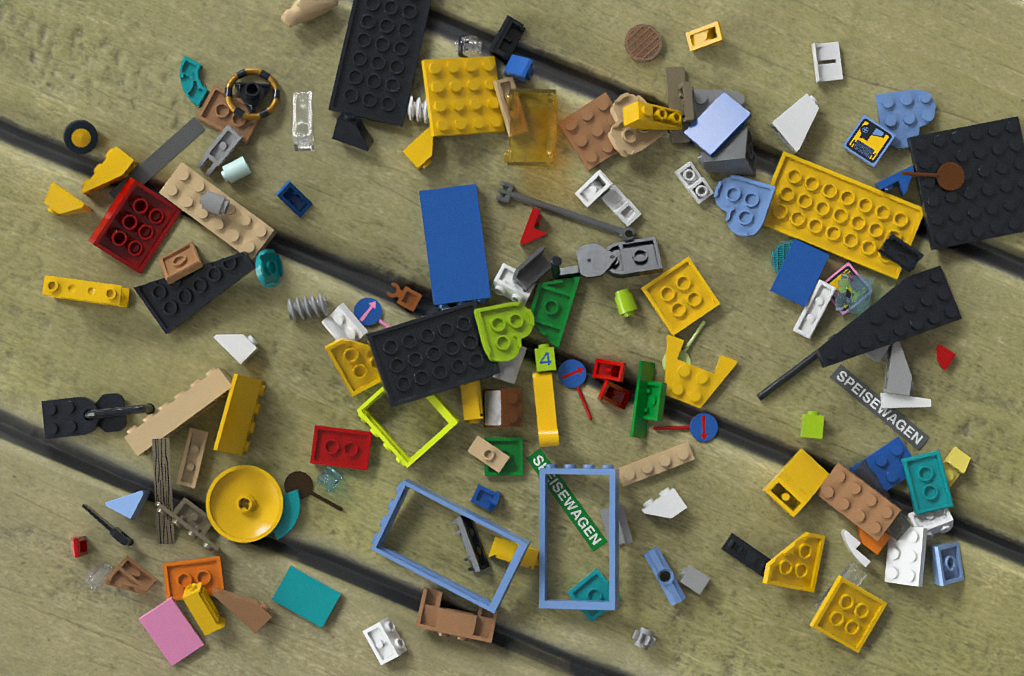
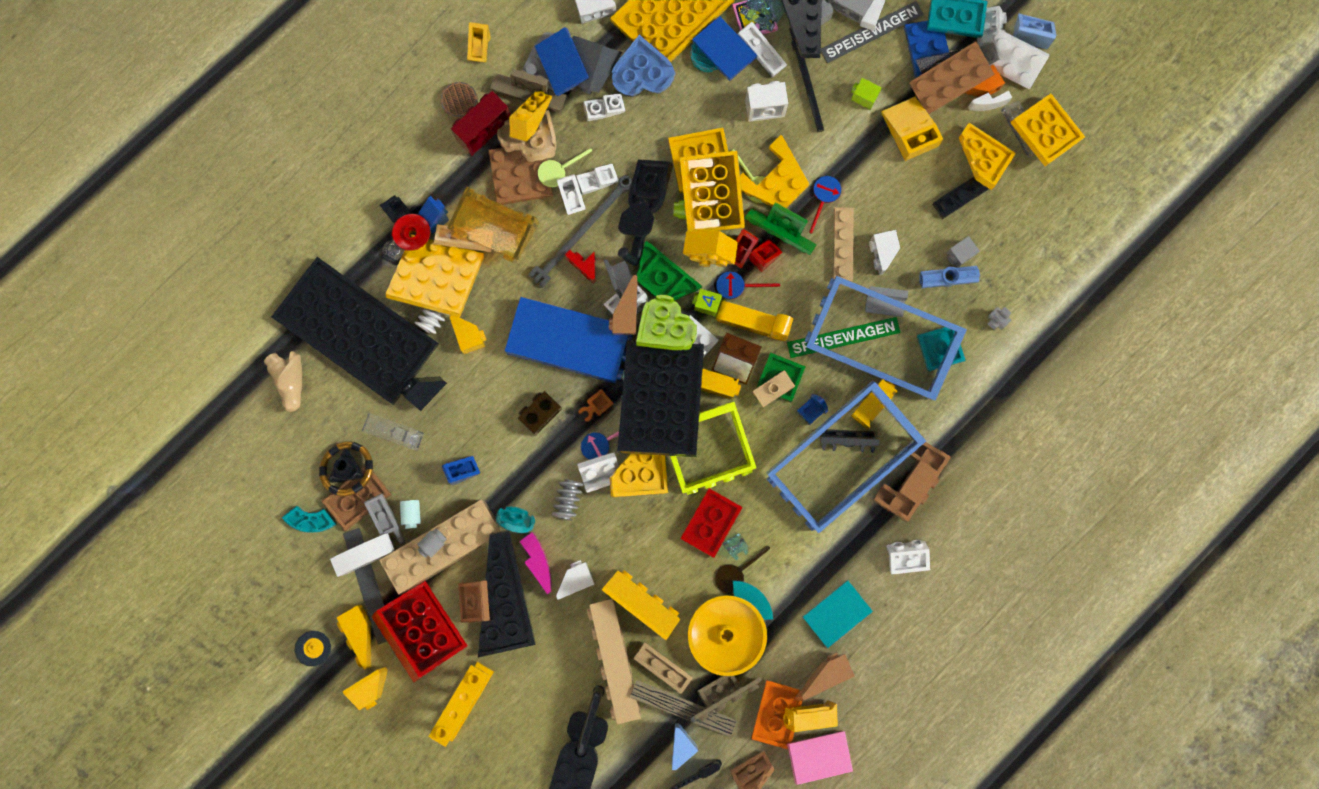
camera: 65 degrees left, 5 degrees down
(180, 144) = (362, 555): none -> white slope
(240, 305) = (538, 562): none -> dark pink slope
(375, 251) = (543, 416): none -> dark brown brick
(493, 47) = (405, 226): none -> red dish
(498, 288) = (625, 315): none -> medium nougat slope
(593, 340) = (710, 248): none -> yellow brick
(609, 162) = (552, 170): none -> yellowish green piece
(626, 74) = (480, 123): none -> dark red brick
(649, 321) = (712, 191): none -> yellow slope
(762, 334) = (766, 101): none -> white brick

